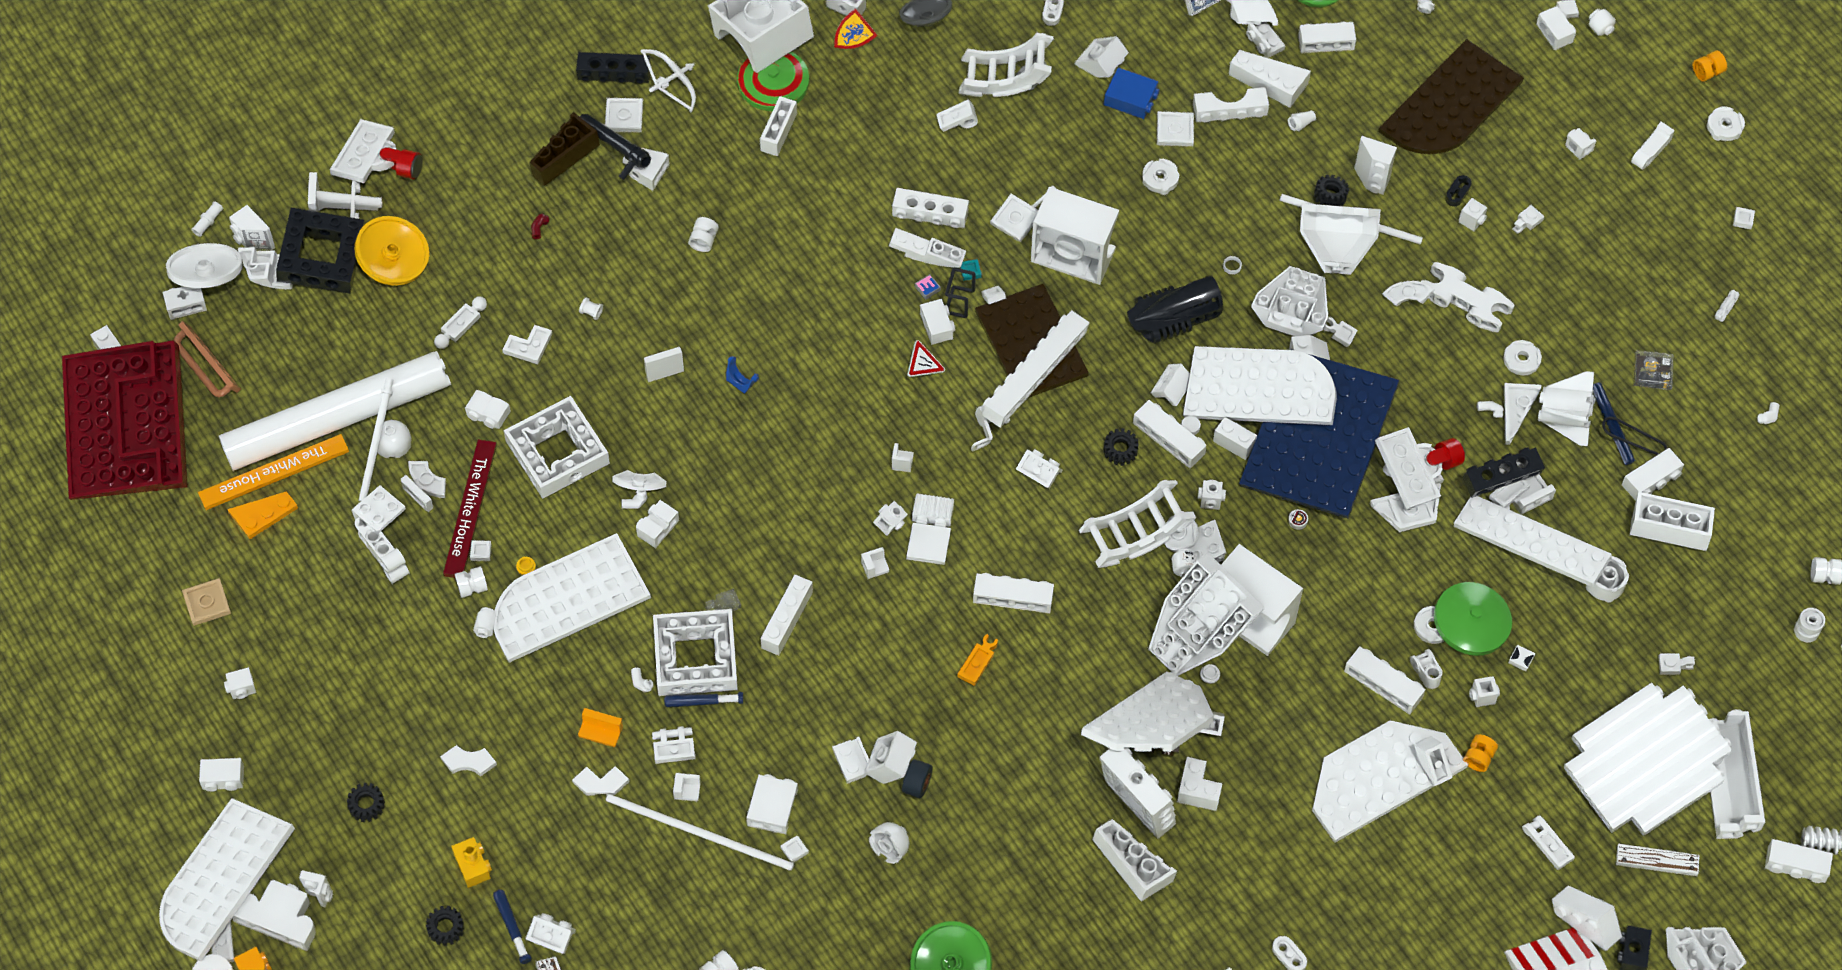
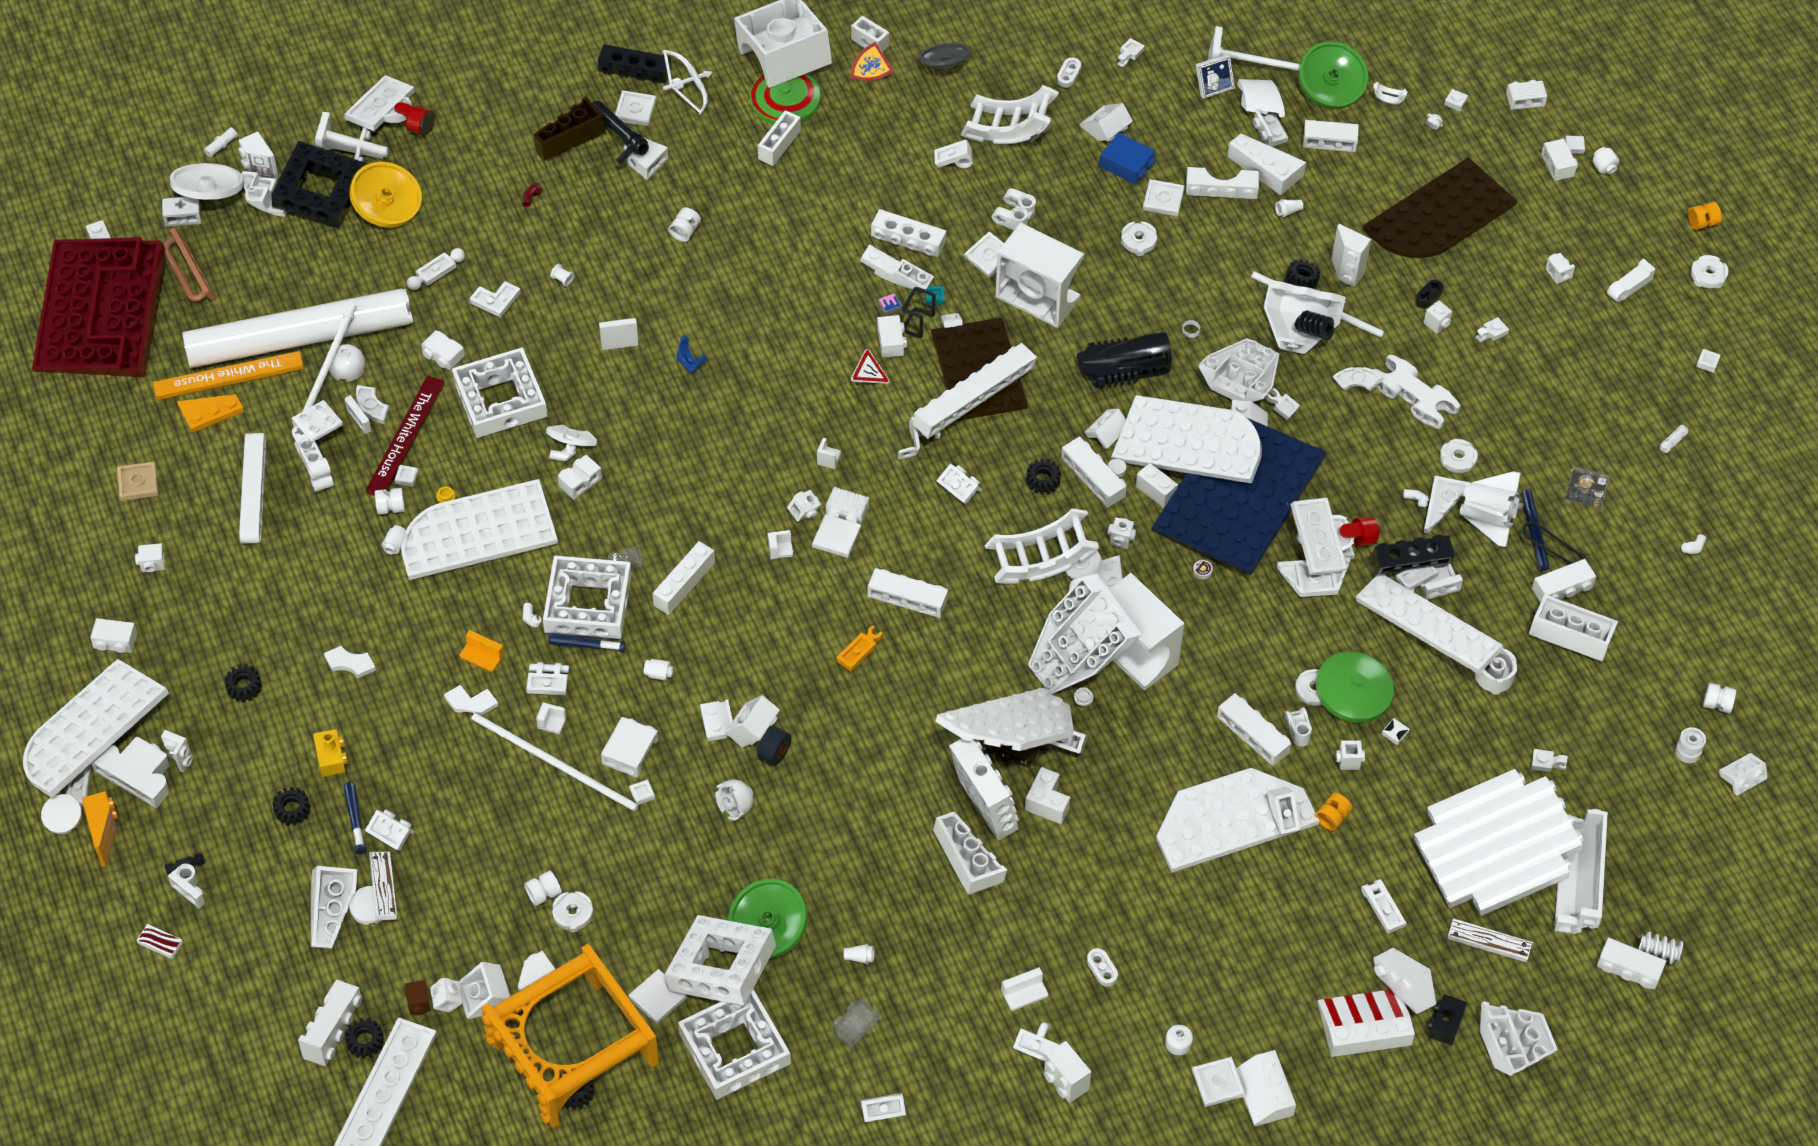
camera: 10 degrees right, 5 degrees down
(327, 590) = (252, 488): none -> white beam
(782, 716) = (658, 669): none -> white brick
(1027, 176) = (1024, 209): none -> white piece
(1356, 243) = (1315, 325): none -> black piece

